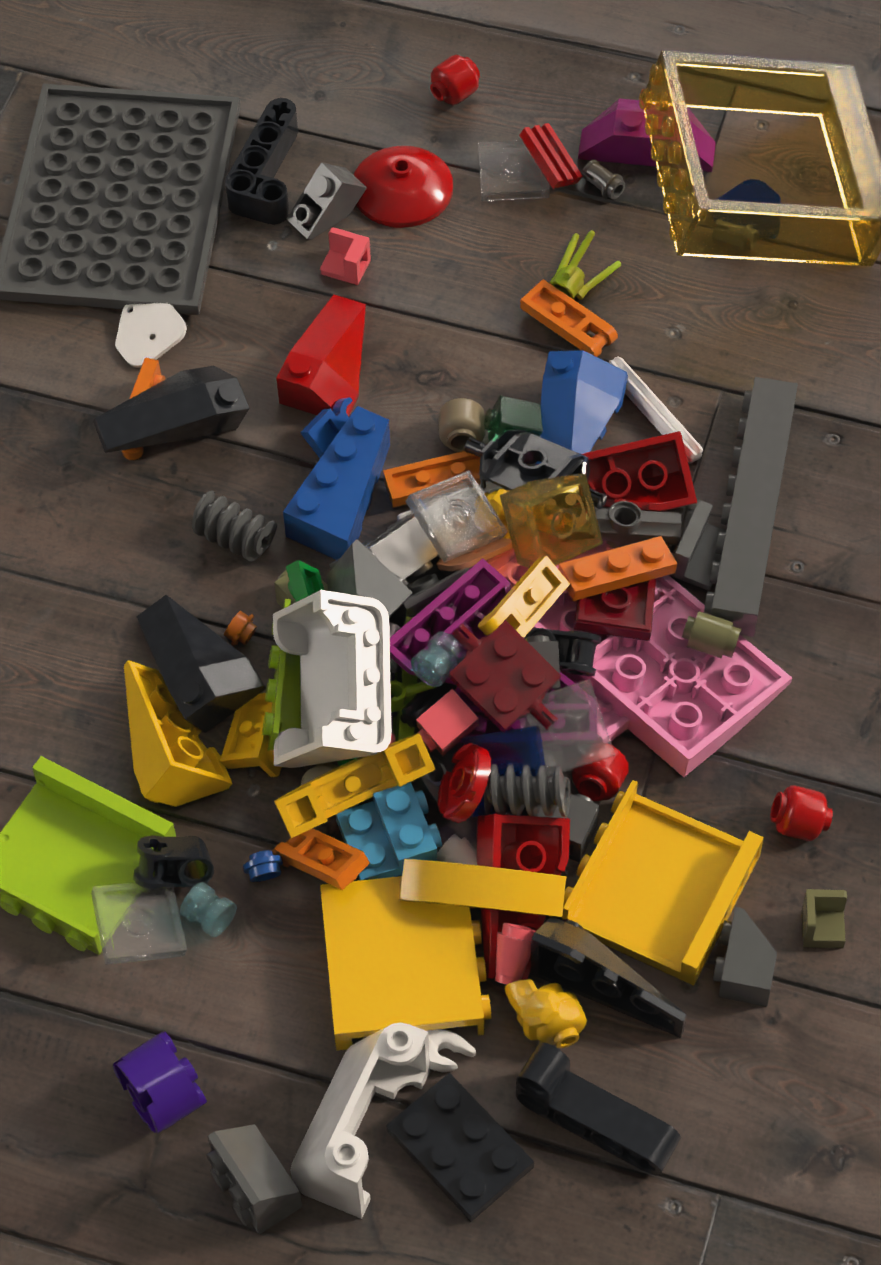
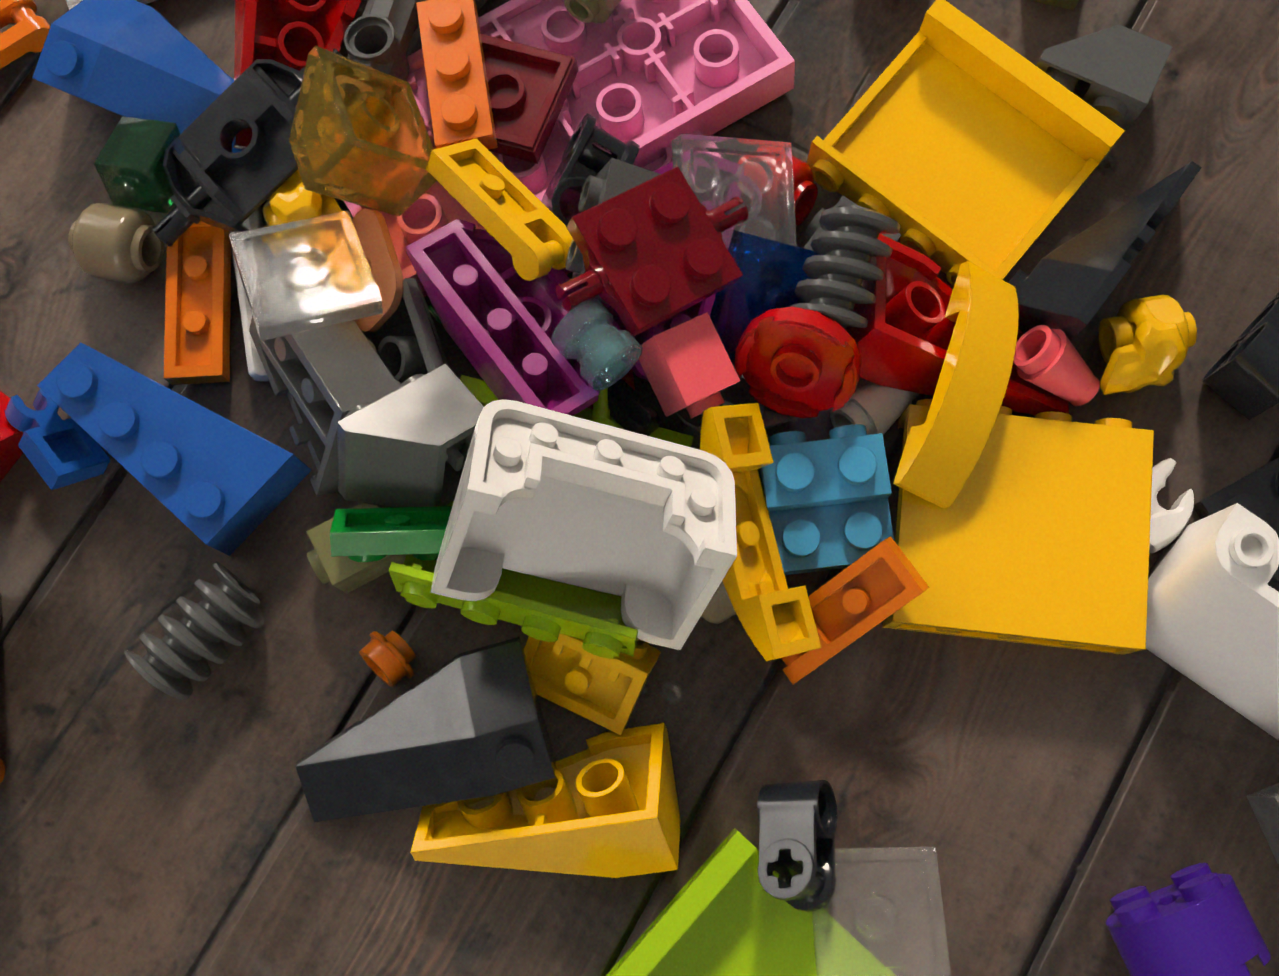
camera: 75 degrees left, 20 degrees up
(208, 909) = (869, 809): clear light blue wheel -> none
(263, 866) = (821, 702): blue plate -> none

